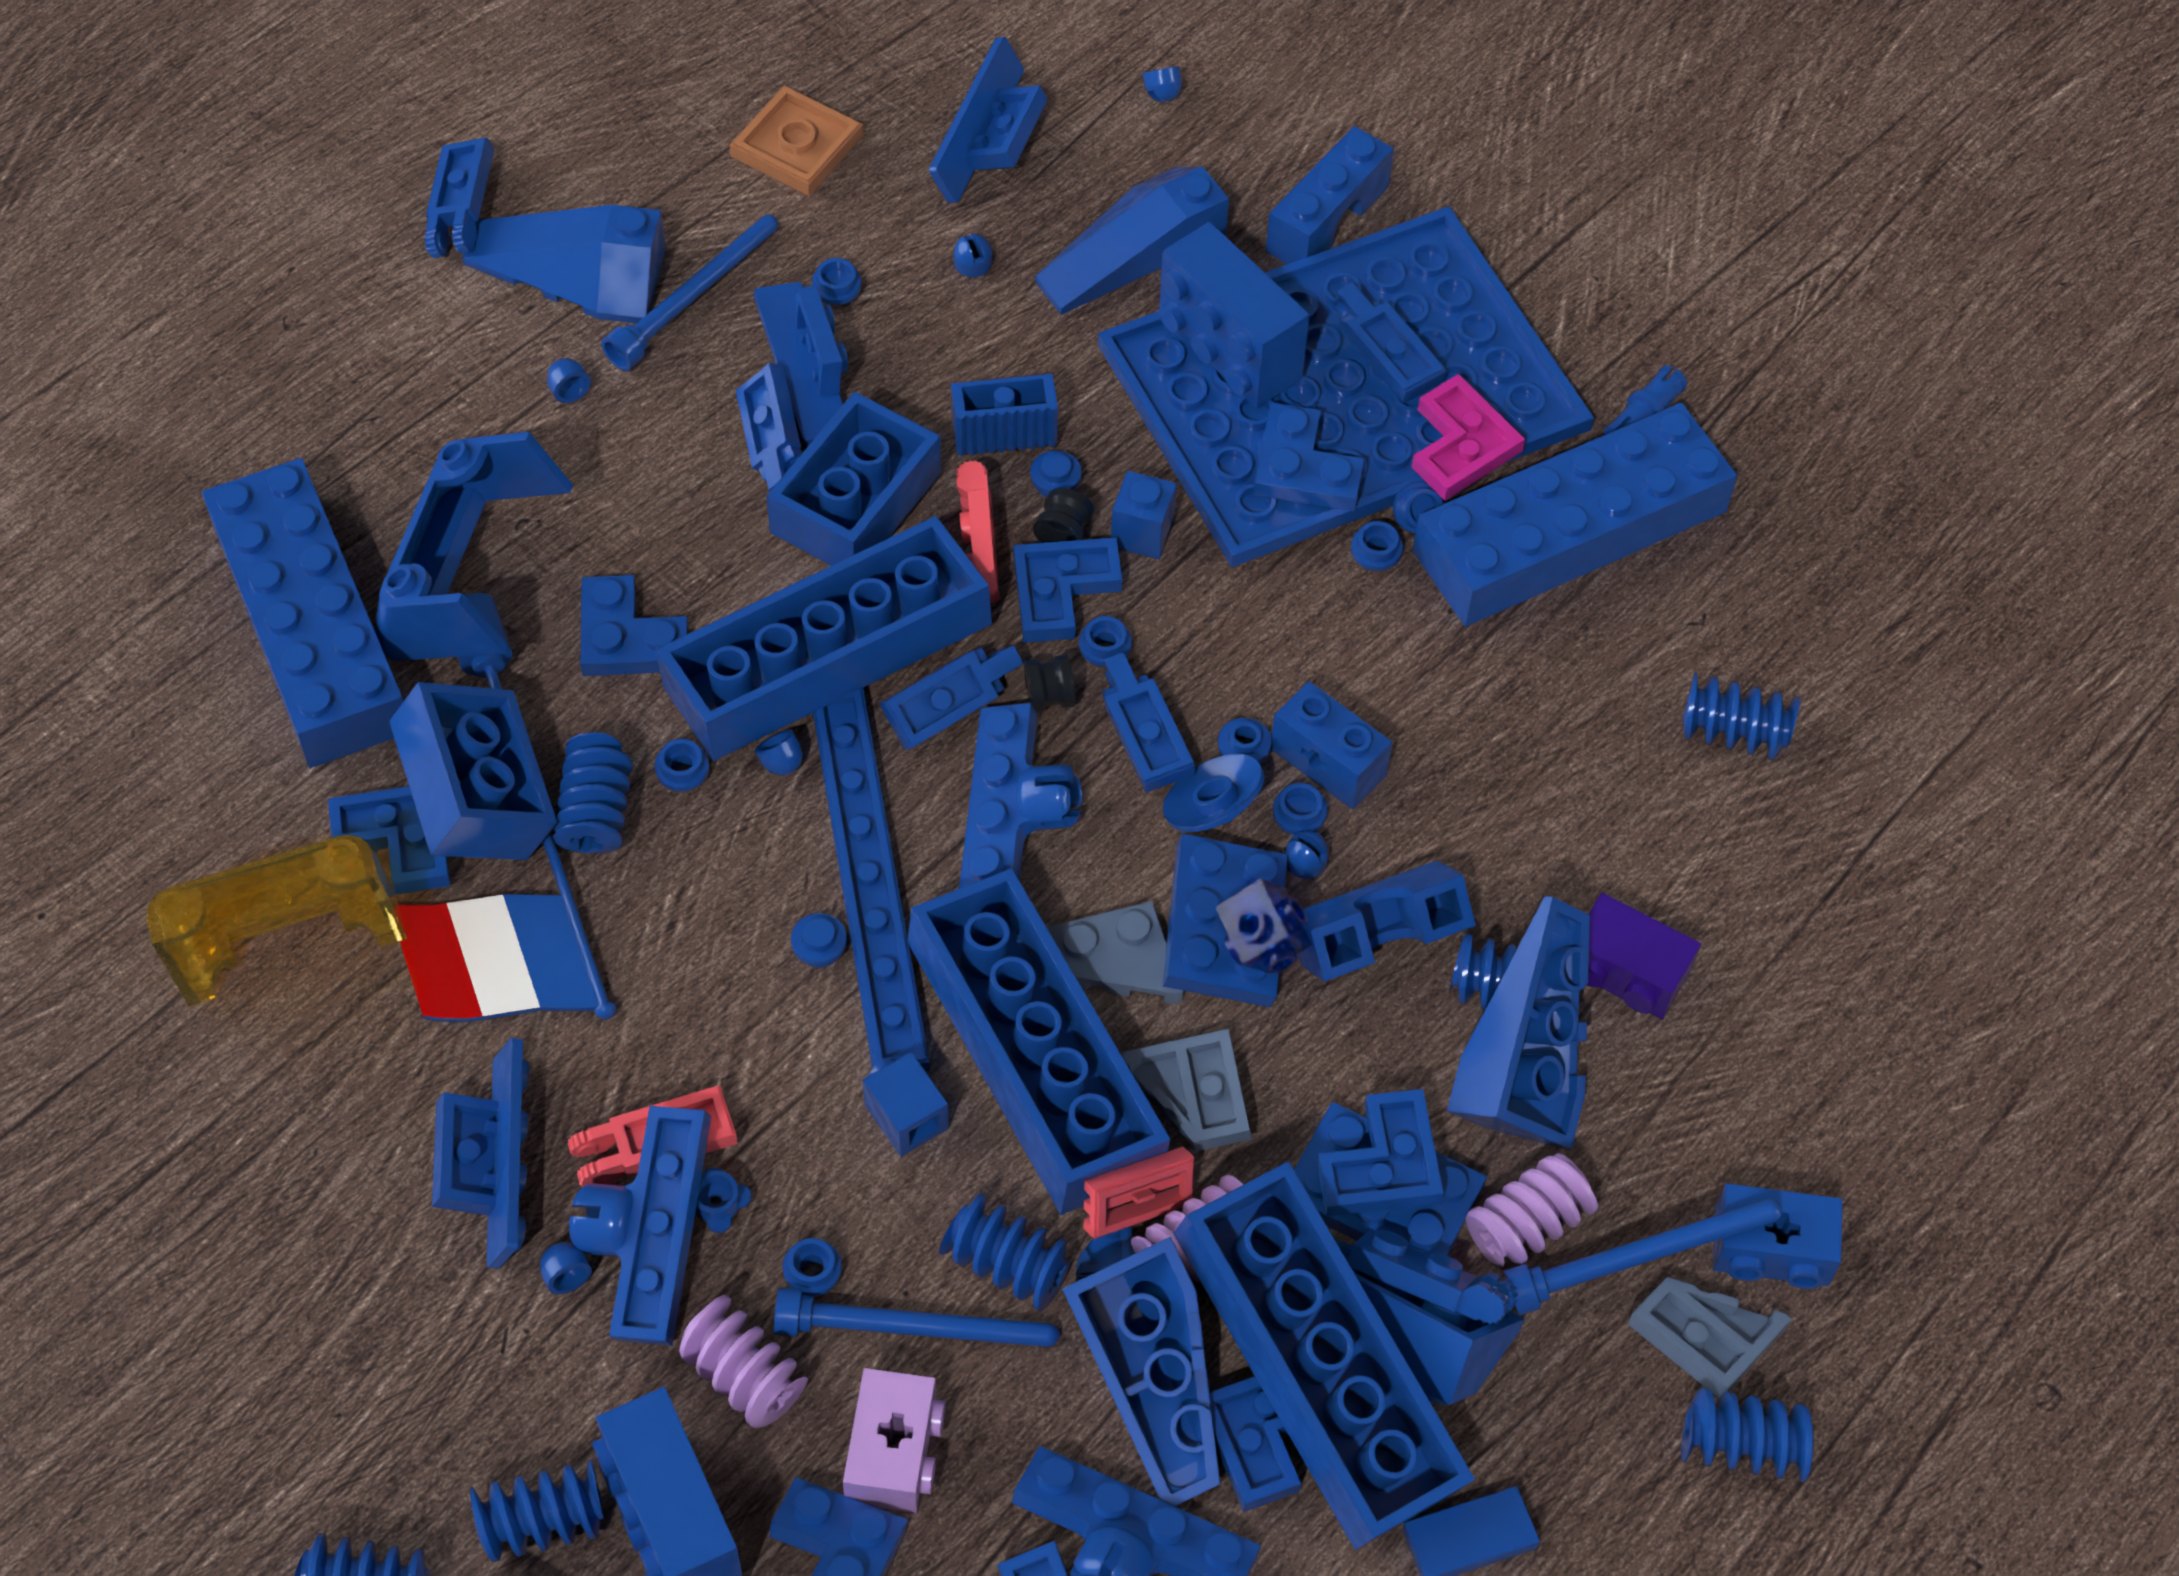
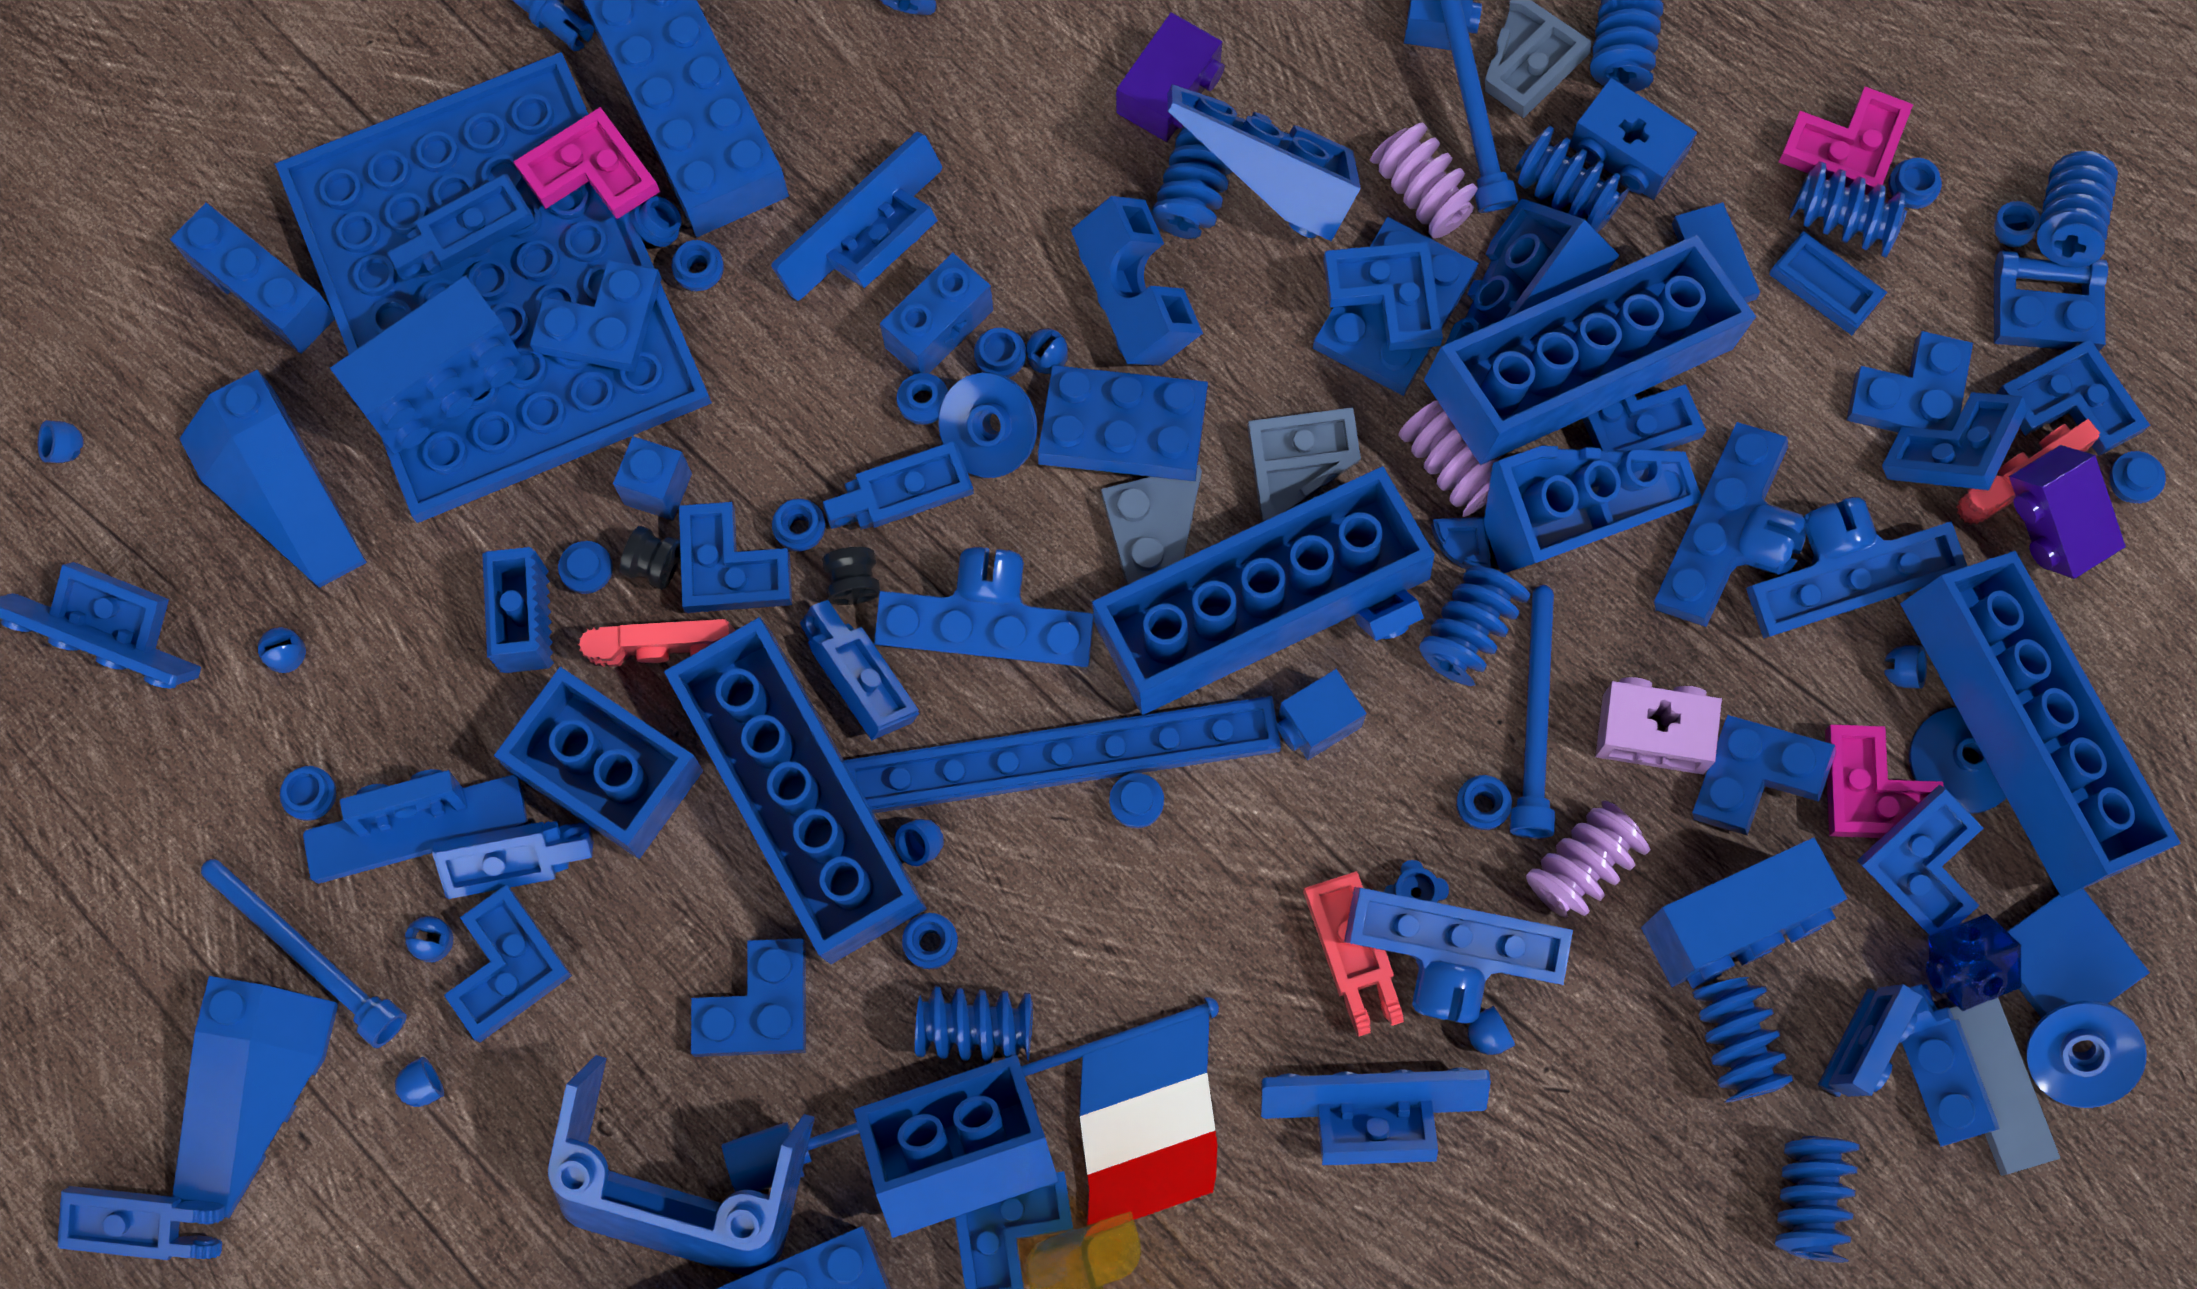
camera: 85 degrees left, 15 degrees up
(667, 444) = (519, 970): none -> blue plate
(710, 381) = (426, 950): none -> blue hinge
(796, 140) = (90, 841): nougat tile -> none
(1014, 1170) = (1390, 617): none -> blue plate
(1138, 1184) = (1421, 505): coral tile -> none
(1264, 927) = (1163, 373): clear blue brick -> none
(1432, 683) = (867, 225): none -> blue bracket
(1432, 1277) = (1499, 262): blue hinge -> none
(1541, 1363) = (1569, 180): none -> blue piece
(1599, 1468) = (1655, 136): none -> blue brick

